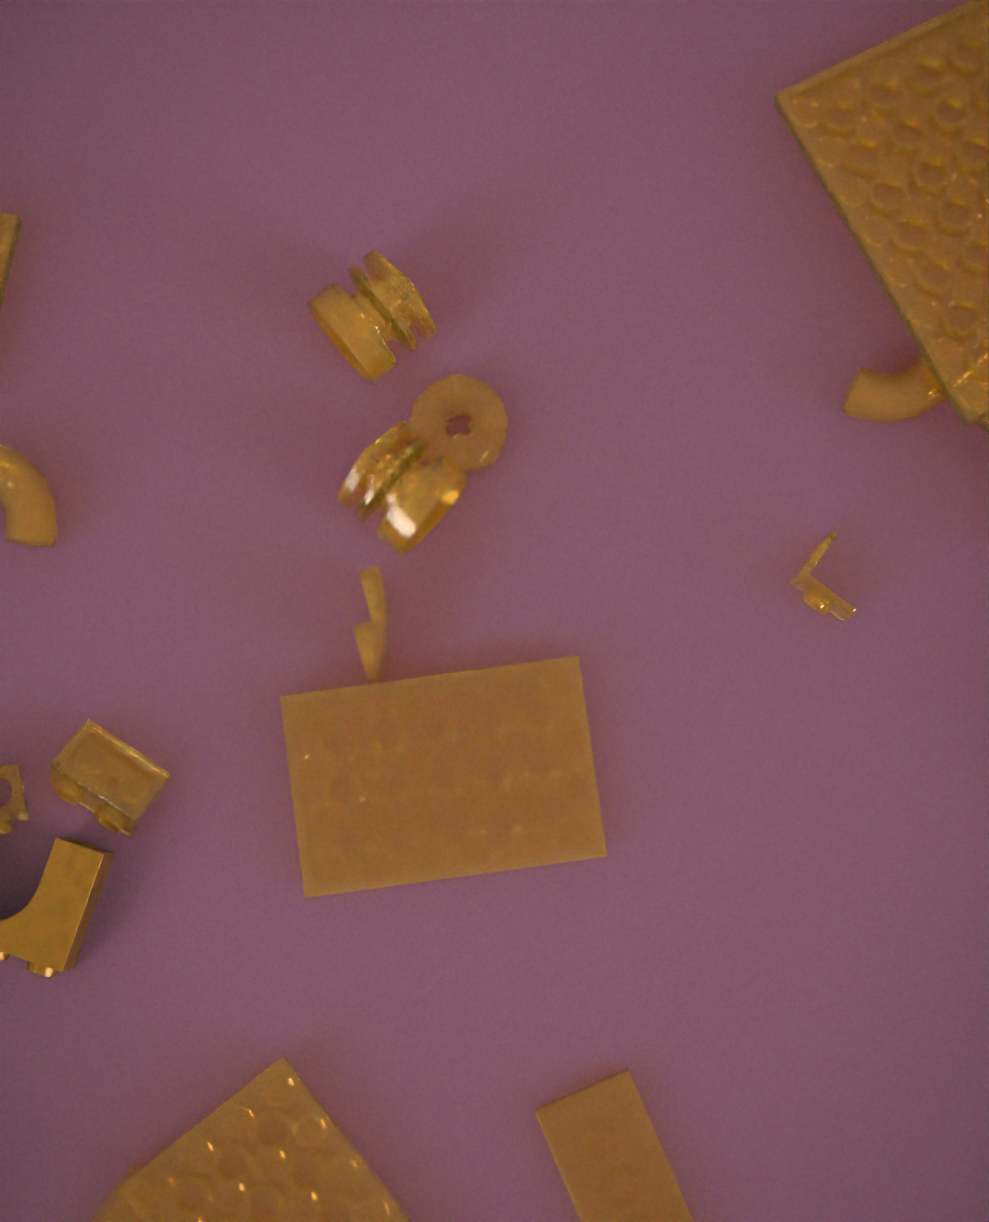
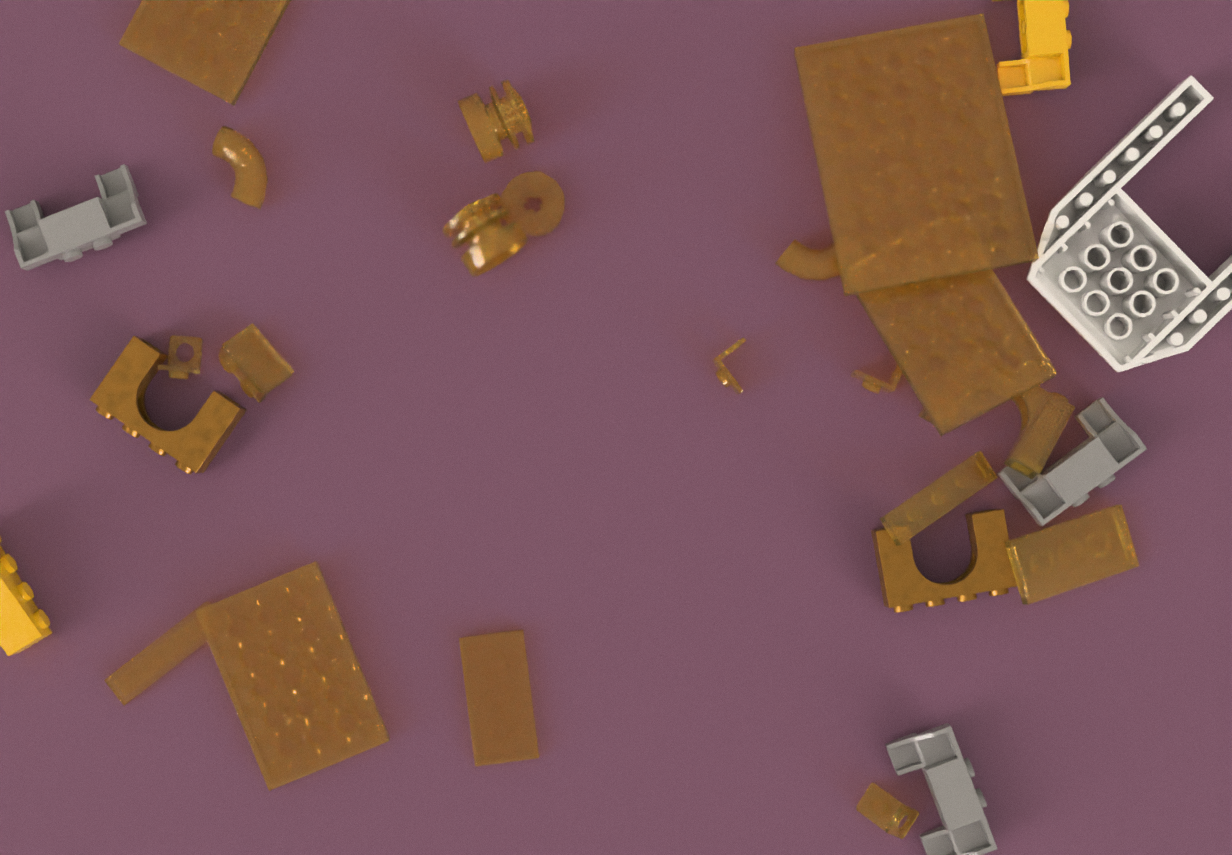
camera: 15 degrees right, 5 degrees up
(375, 636) = (441, 324): clear yellow slope -> none
(442, 776) = (460, 420): clear yellow plate -> none

